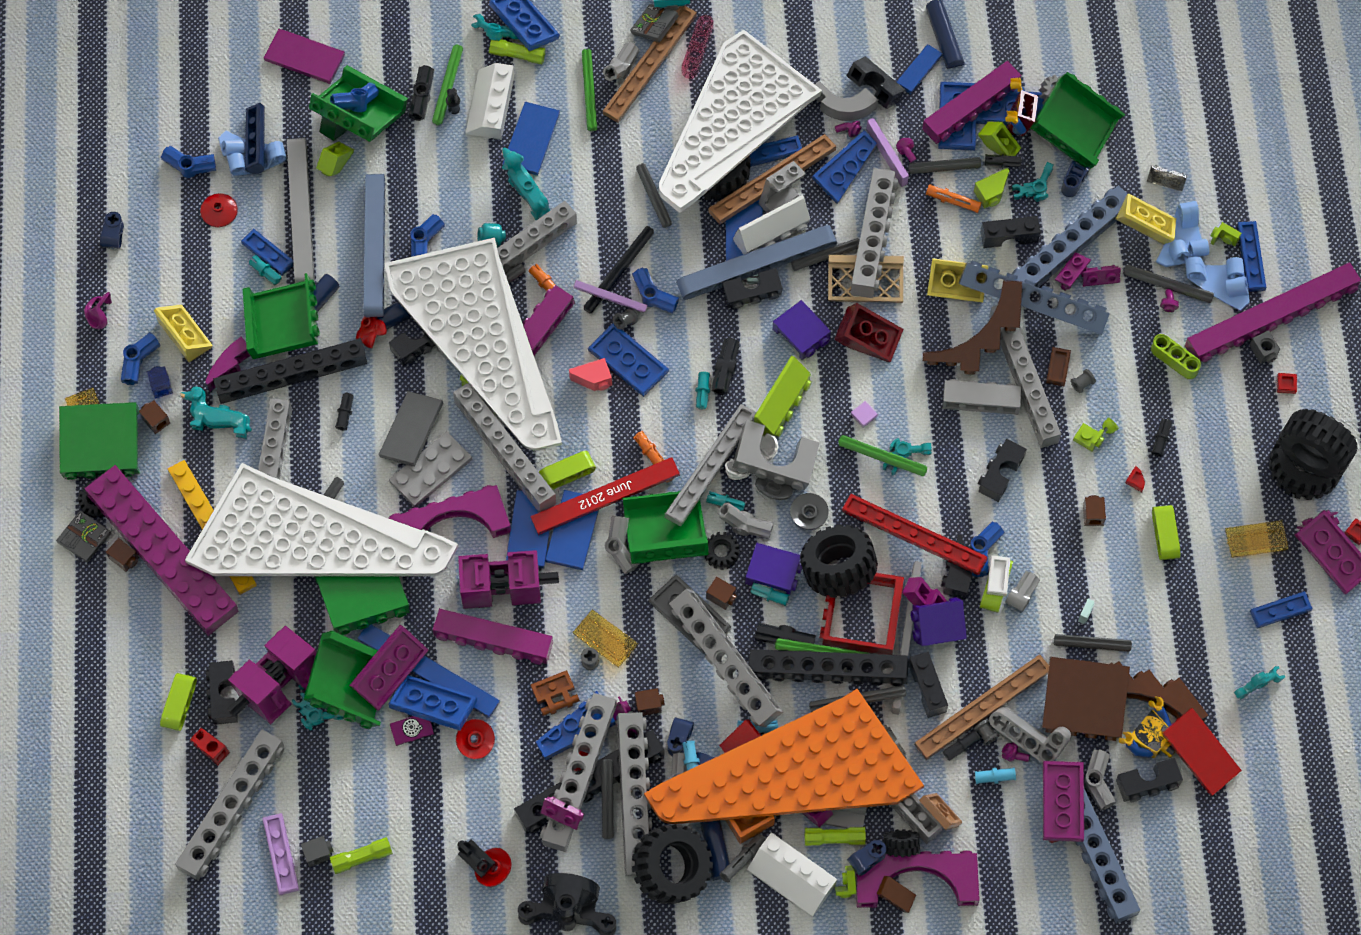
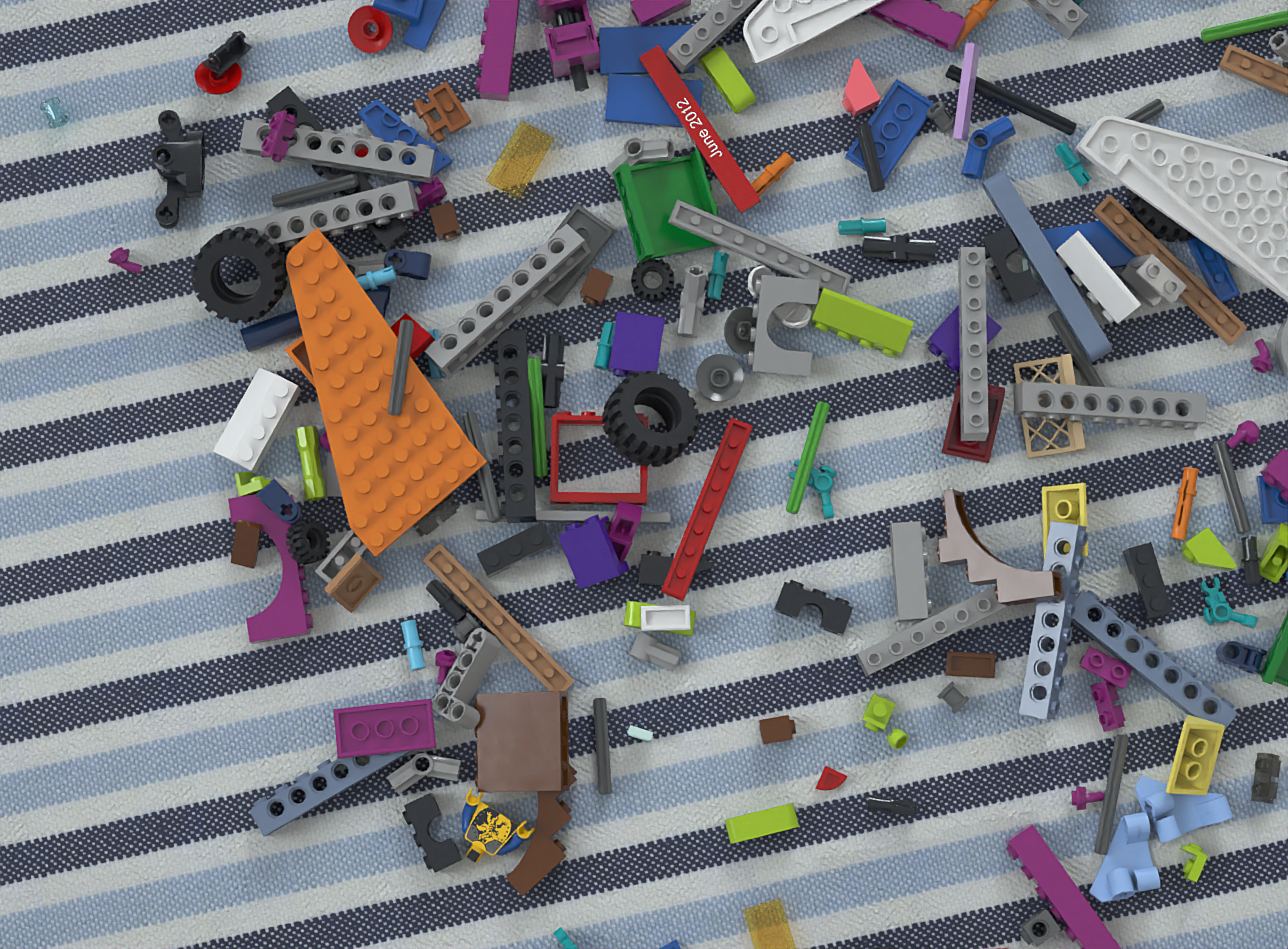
camera: 80 degrees right, 15 degrees up
(589, 652) = (496, 147): dark grey bush -> none
(649, 374) = (870, 157): none -> black axle
(678, 233) = (1072, 164): none -> teal axle
(748, 852) = (291, 373): dark grey pin -> none
(773, 740) = (400, 367): none -> dark grey axle
(814, 317) = (973, 344): none -> light grey brick
(842, 168) = (1202, 357): blue wing -> none
(864, 414) = (863, 429): lavender tile -> none
(887, 152) = (1236, 410): lavender tile -> none
(986, 539) = (718, 601): blue piece -> none
(1172, 348) = (996, 819): lime beam -> none
(1201, 751) = (475, 892): red tile -> none
(1251, 256) = (1171, 900): blue tile -> none

